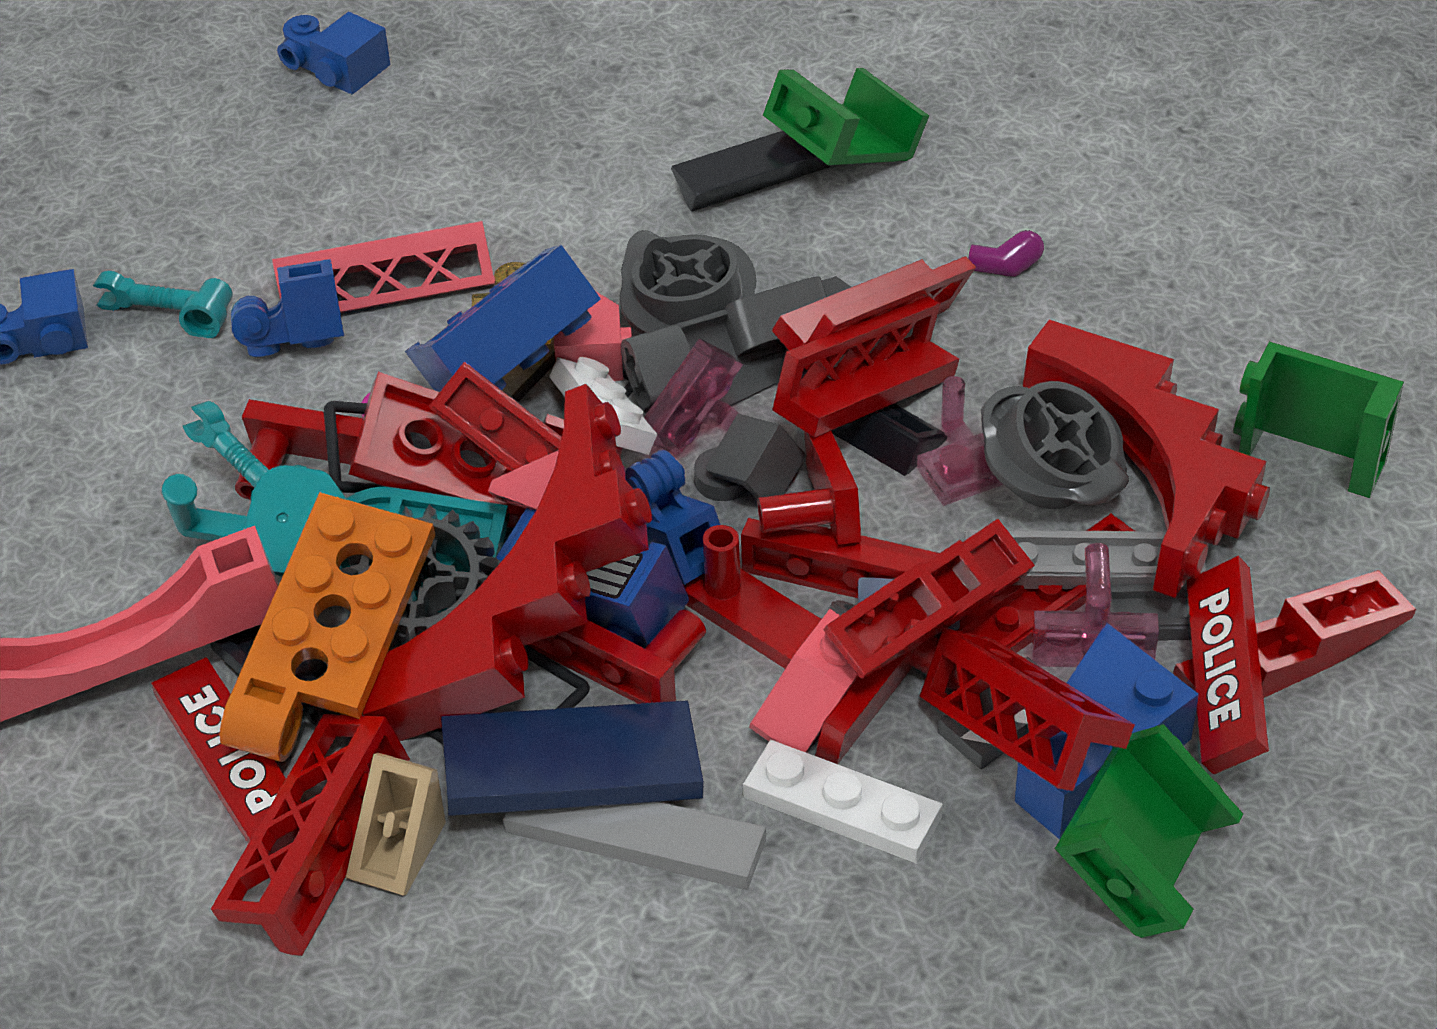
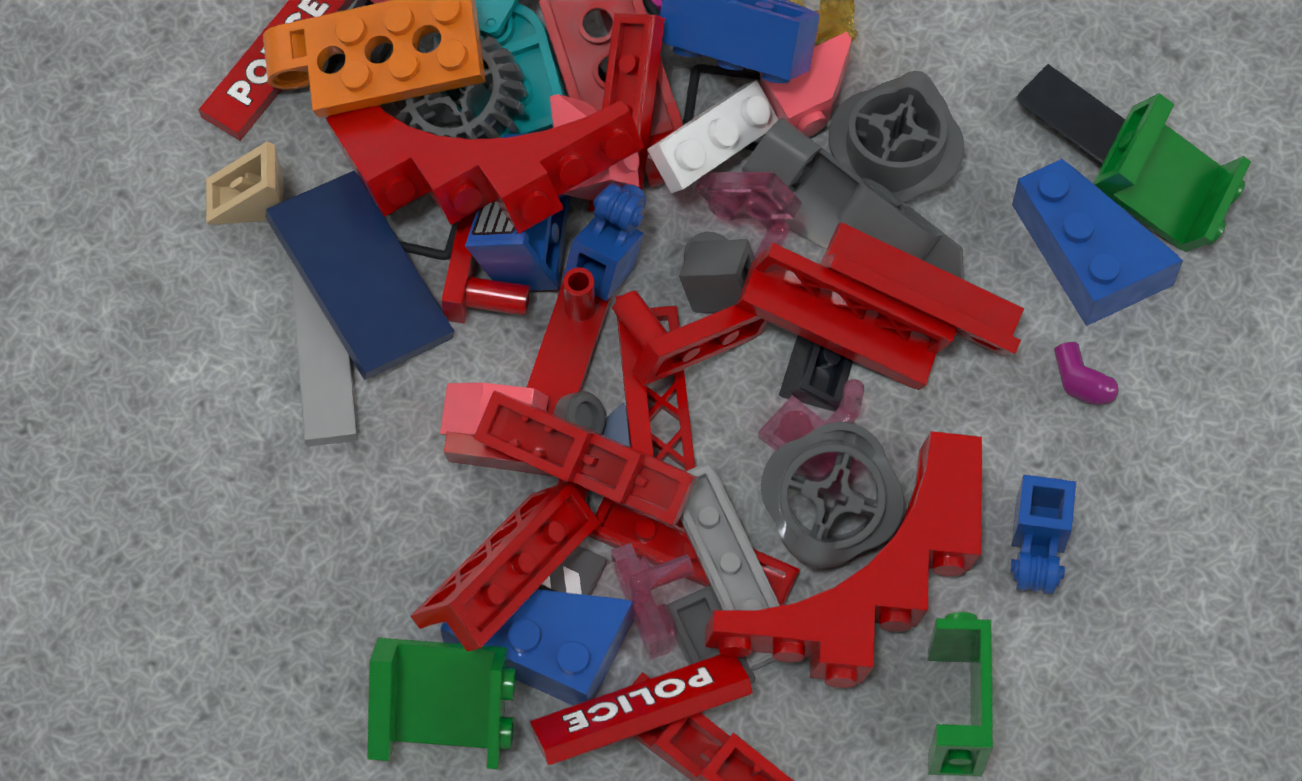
camera: 65 degrees right, 20 degrees up
(317, 861) = (188, 153): red fence -> none
(843, 801) = (410, 479): white plate -> none
(876, 197) = (1091, 242): none -> blue wedge
(1151, 316) = (1041, 530): none -> blue brick

